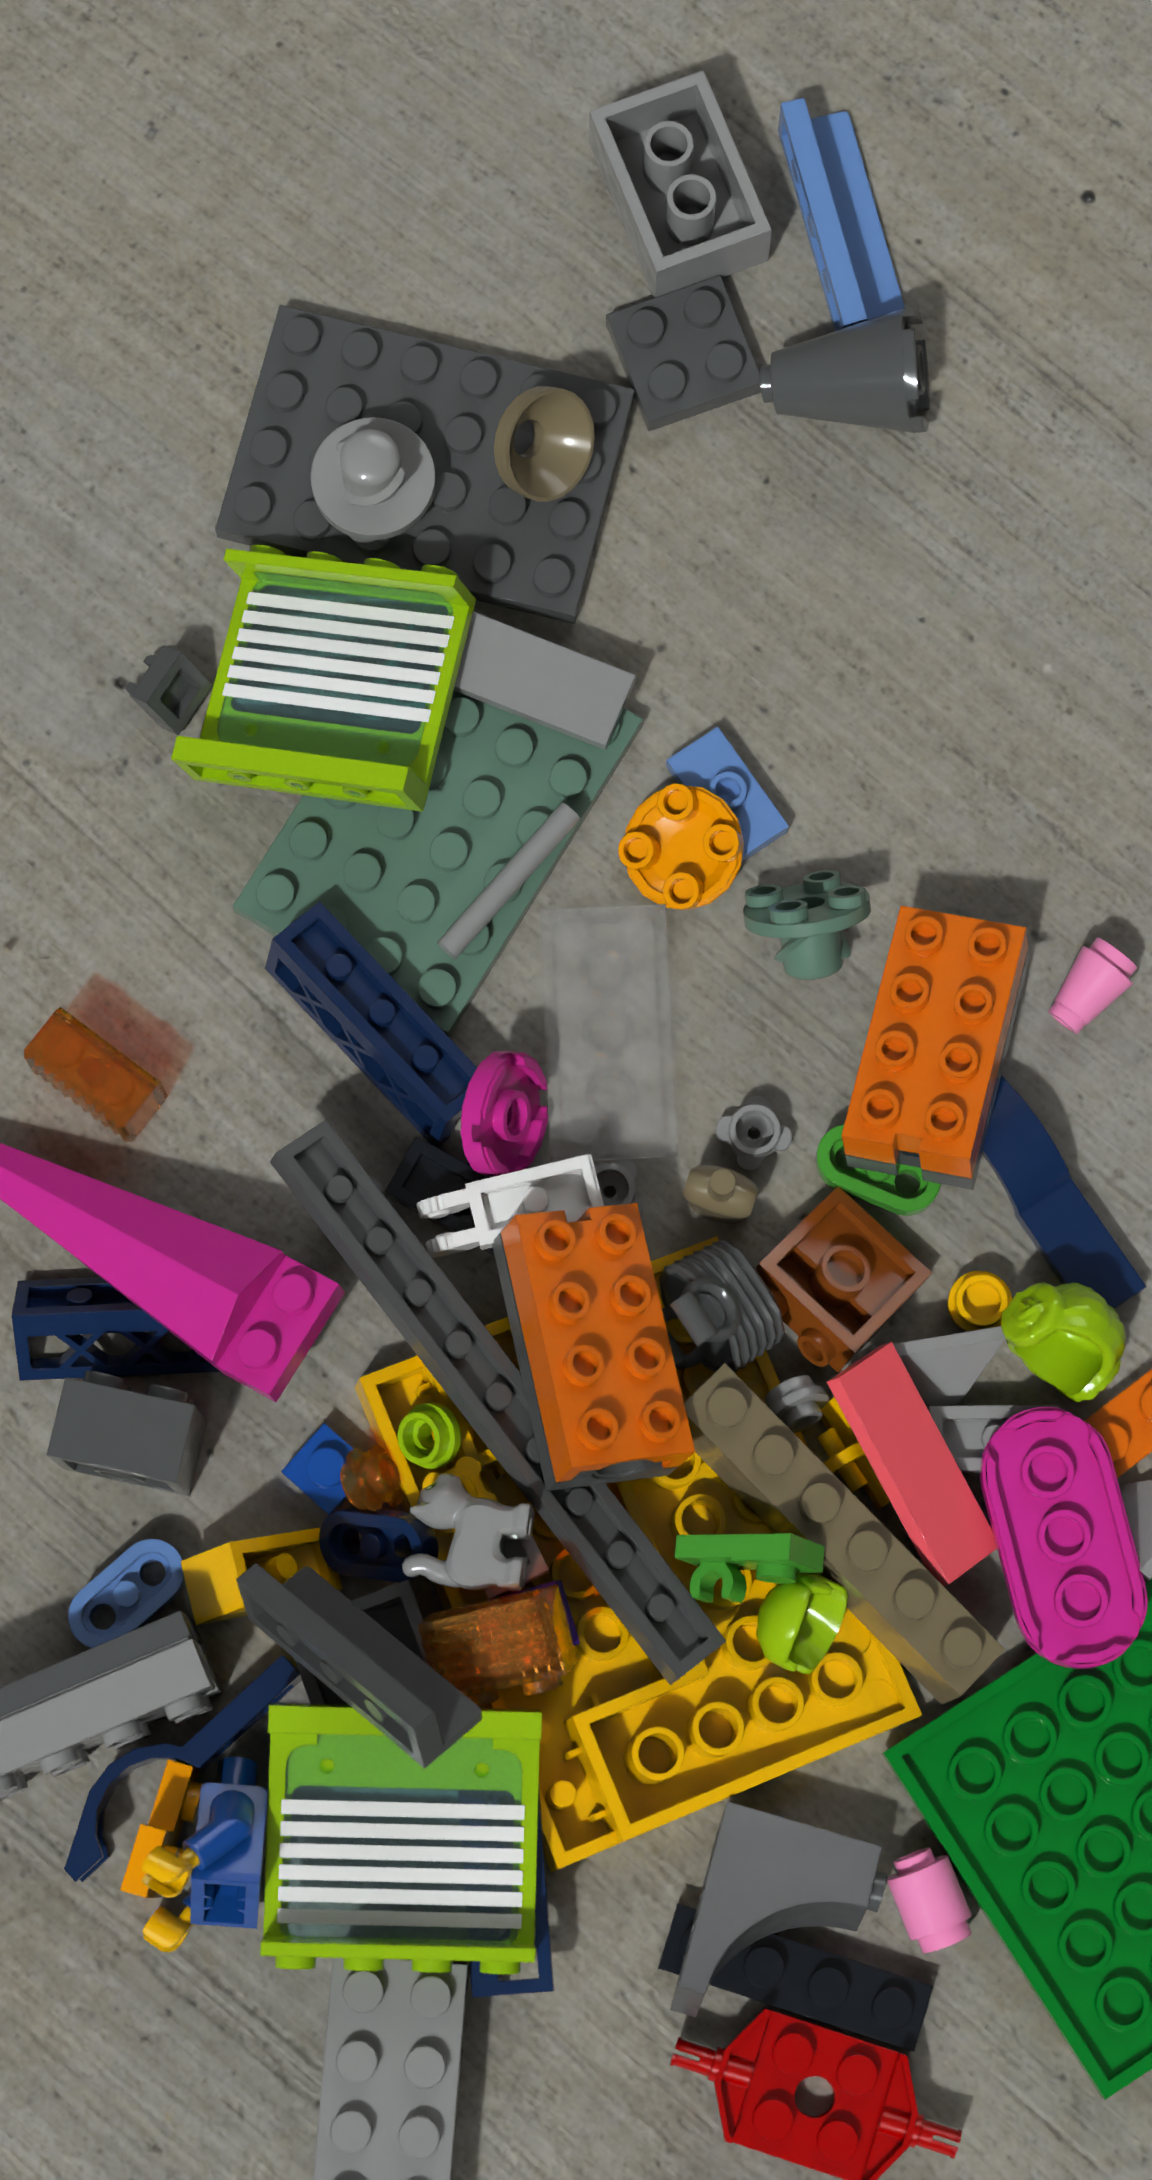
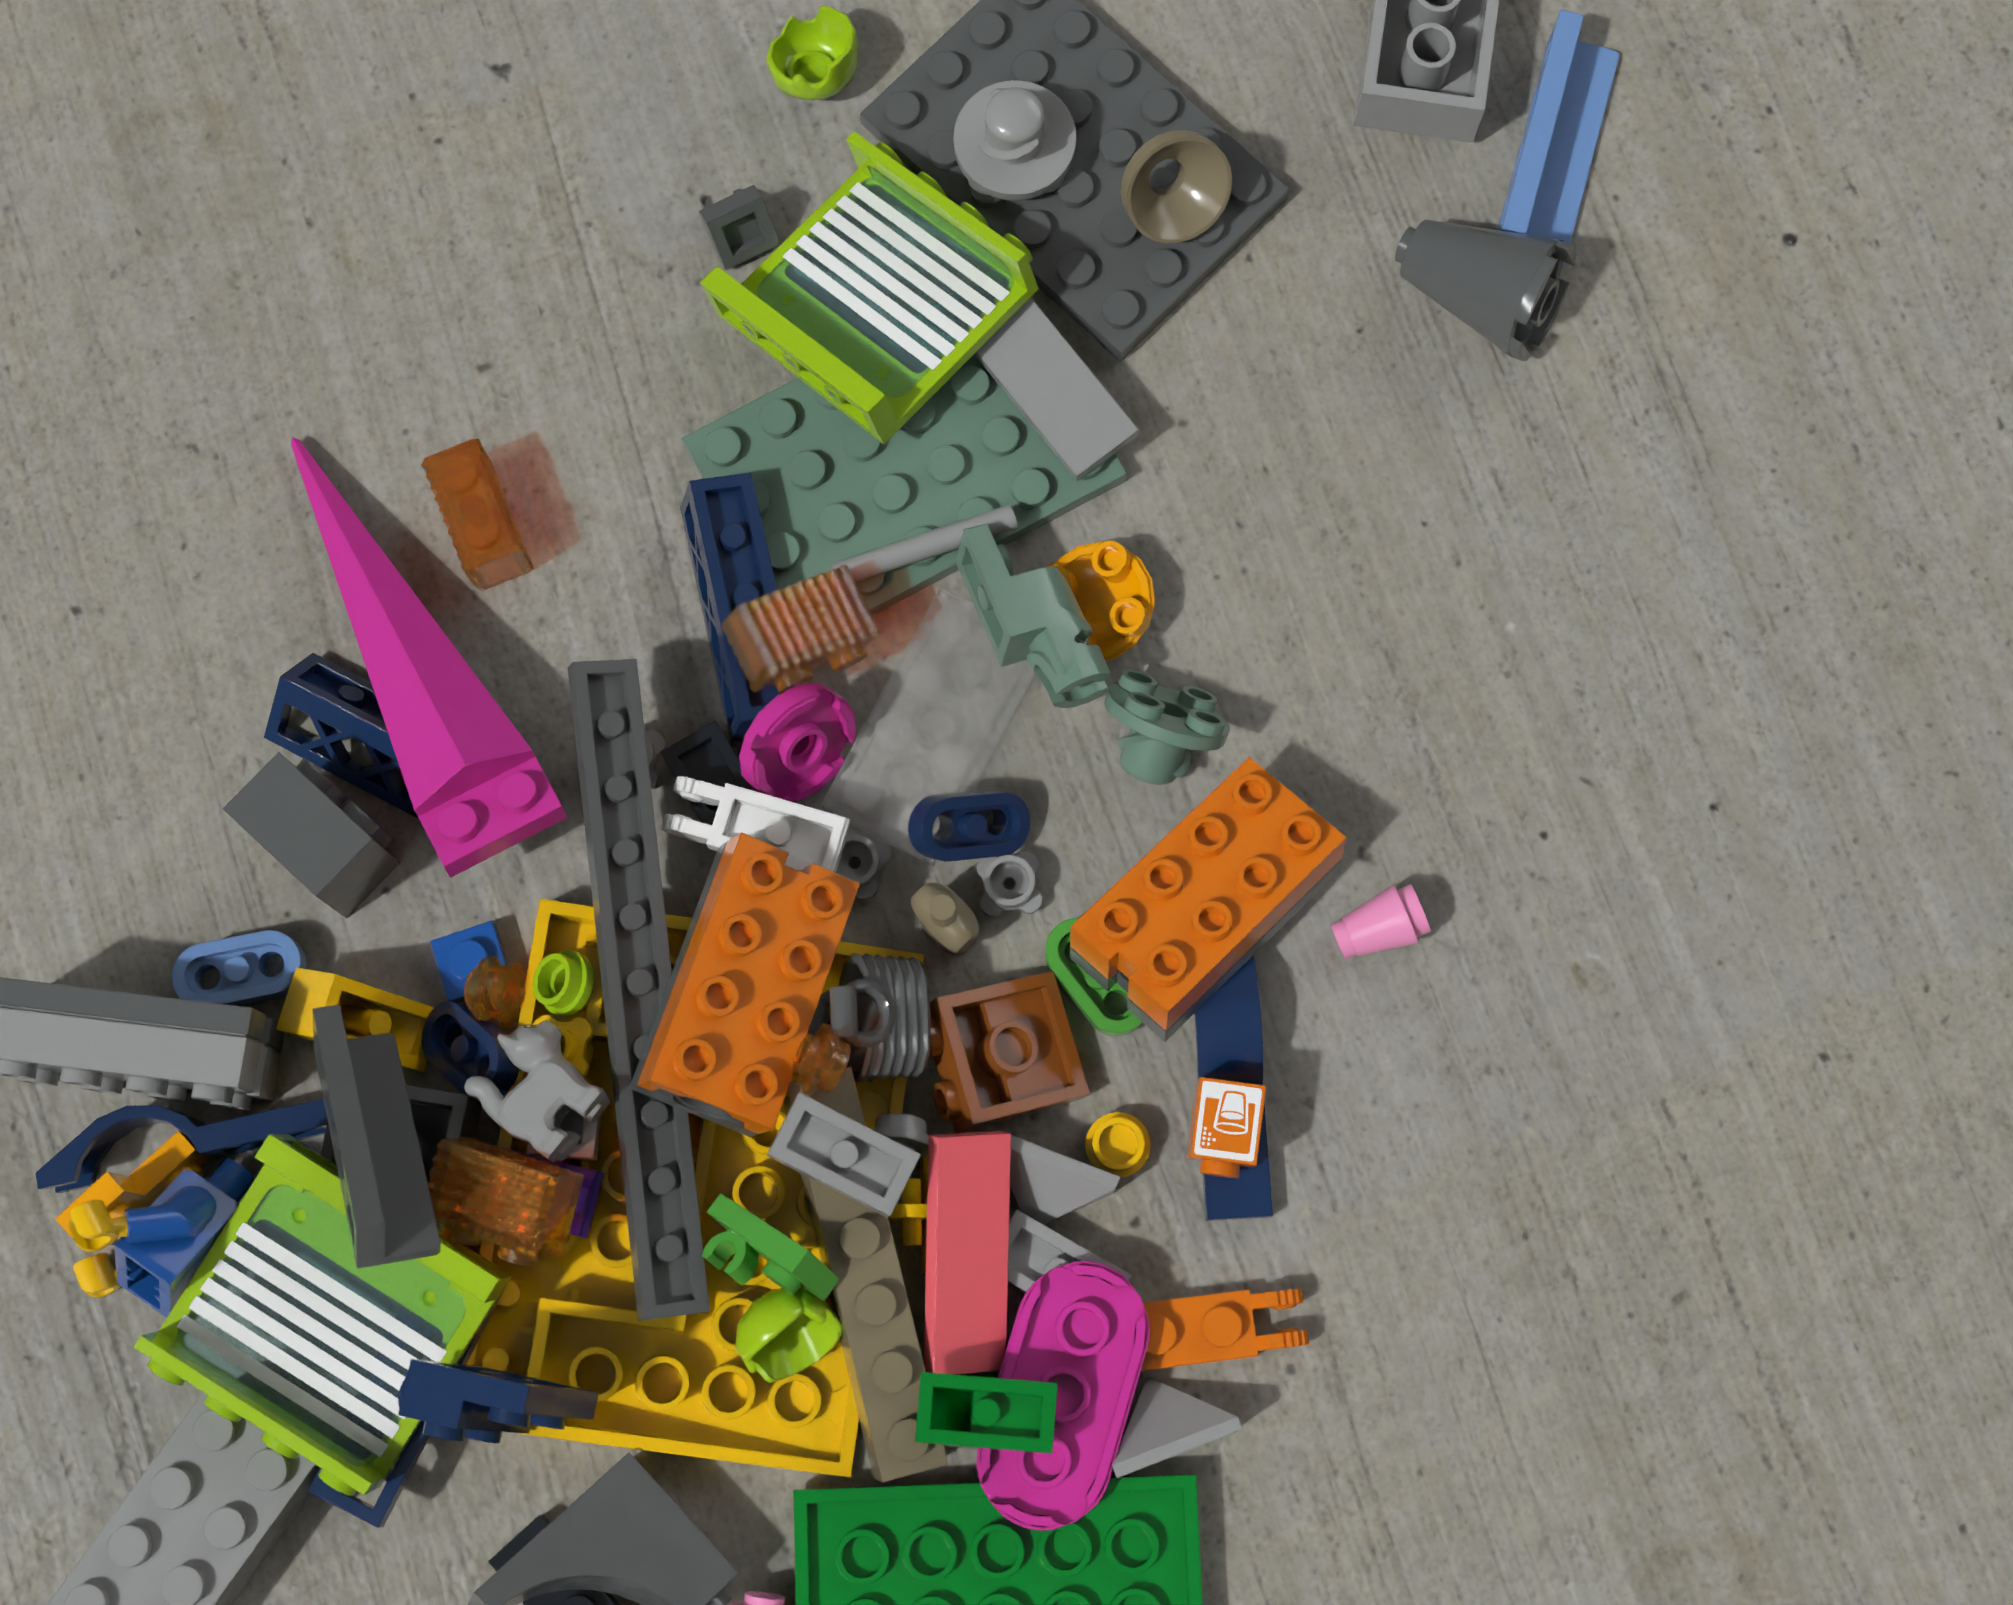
camera: 30 degrees right, 0 degrees up
(145, 499) = (814, 55): none -> lime hair
(451, 1013) = (801, 630): none -> clear orange brick
(584, 1828) = (486, 1401): none -> dark blue plate
(642, 892) = (1032, 620): none -> sand green plate
(684, 353) = (1352, 182): dark grey plate -> none
(684, 1110) = (964, 825): none -> dark blue plate
(701, 1370) = (821, 1060): none -> clear orange plate
(719, 769) = (1166, 553): medium blue plate -> none
(768, 1438) = (843, 1155): none -> light grey plate
(1014, 1586) = (986, 1413): none -> green slope
(1065, 1231) = (1225, 1126): none -> orange brick
(1066, 1337) = (1170, 1219): lime hair -> none

